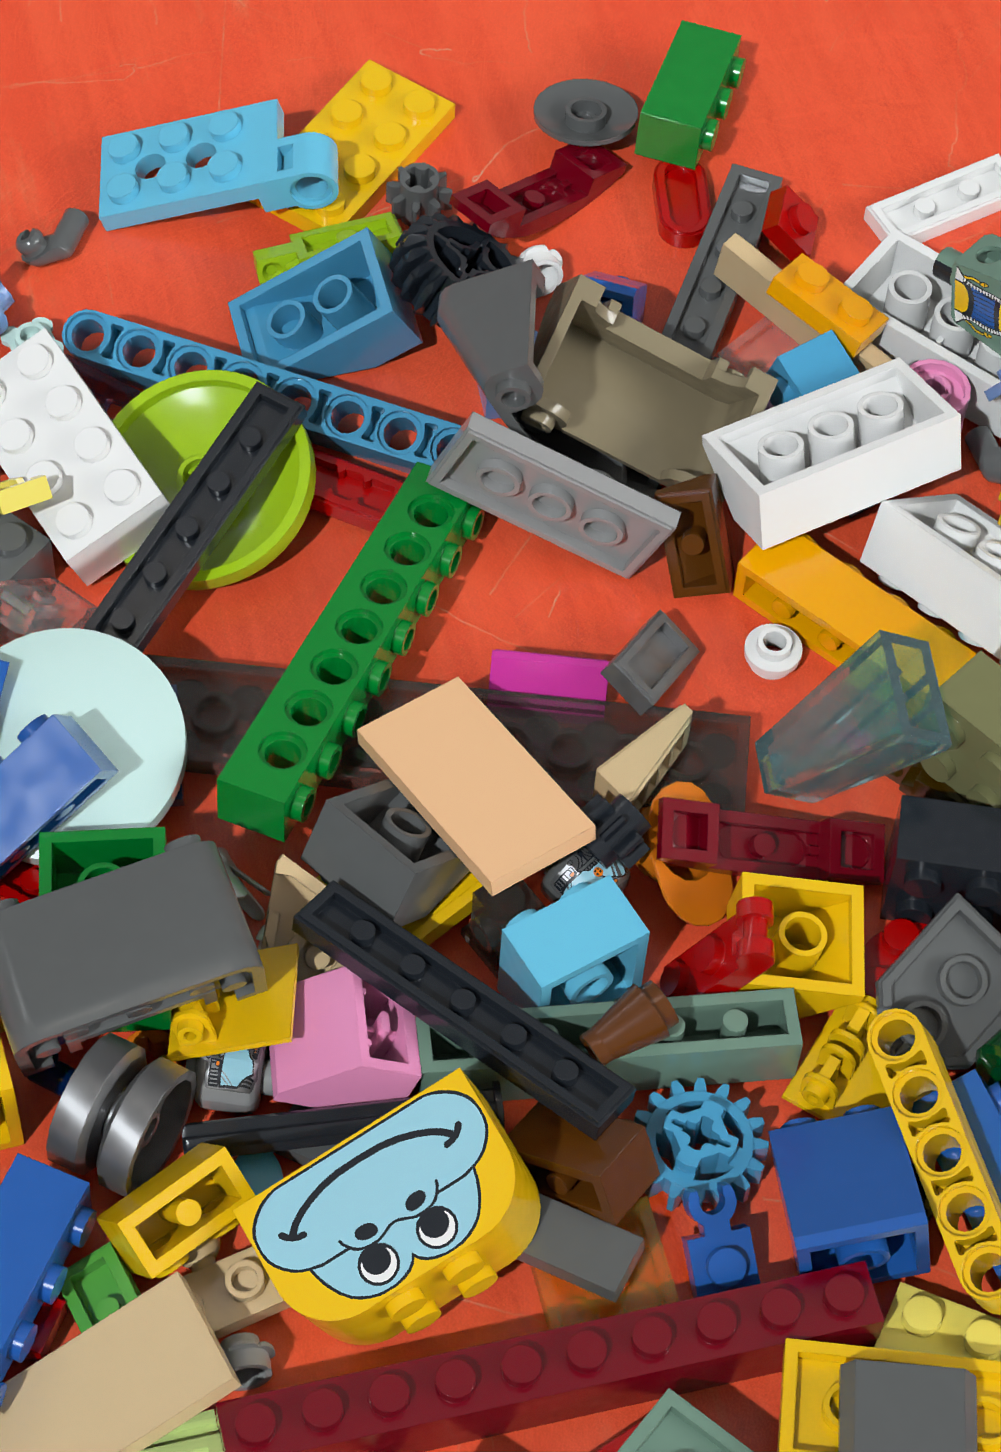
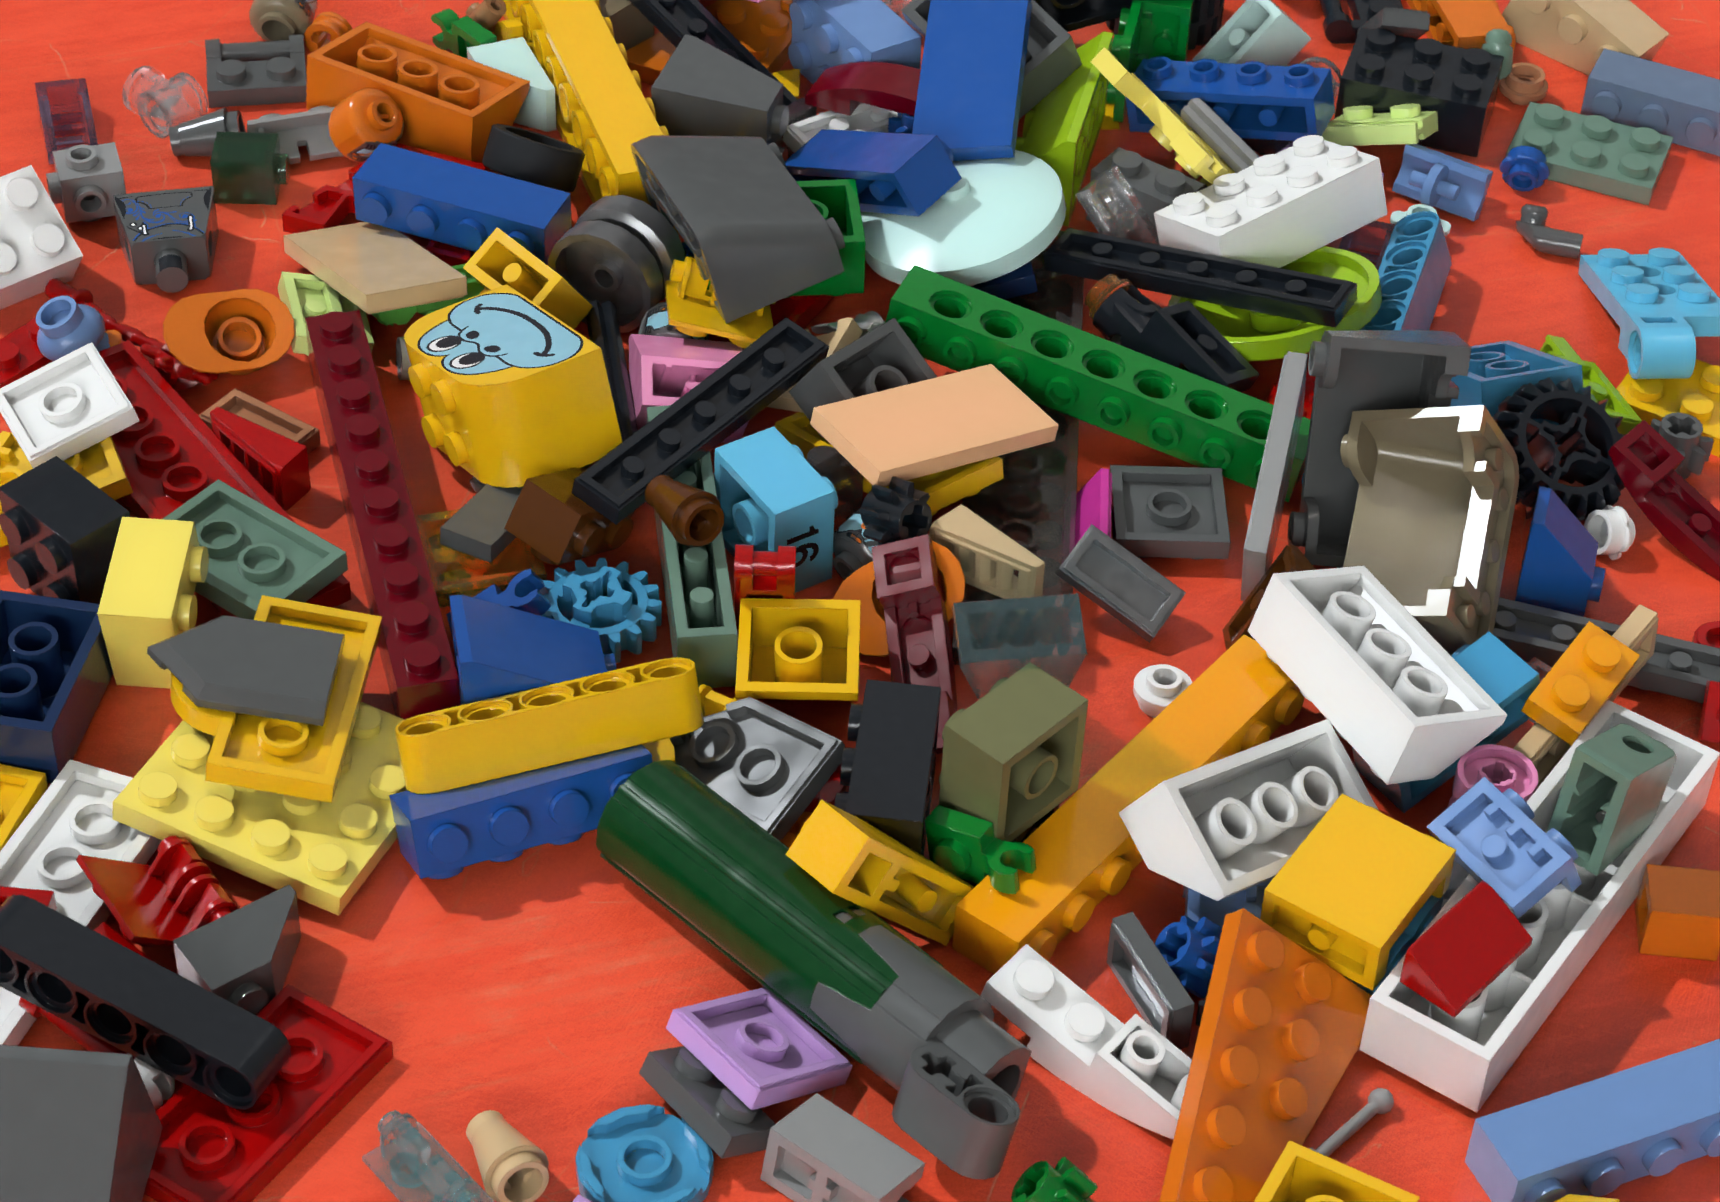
camera: 90 degrees right, 15 degrees down
(280, 579) = (1169, 334): none -> black plate
(515, 611) = (1170, 511): none -> dark grey plate

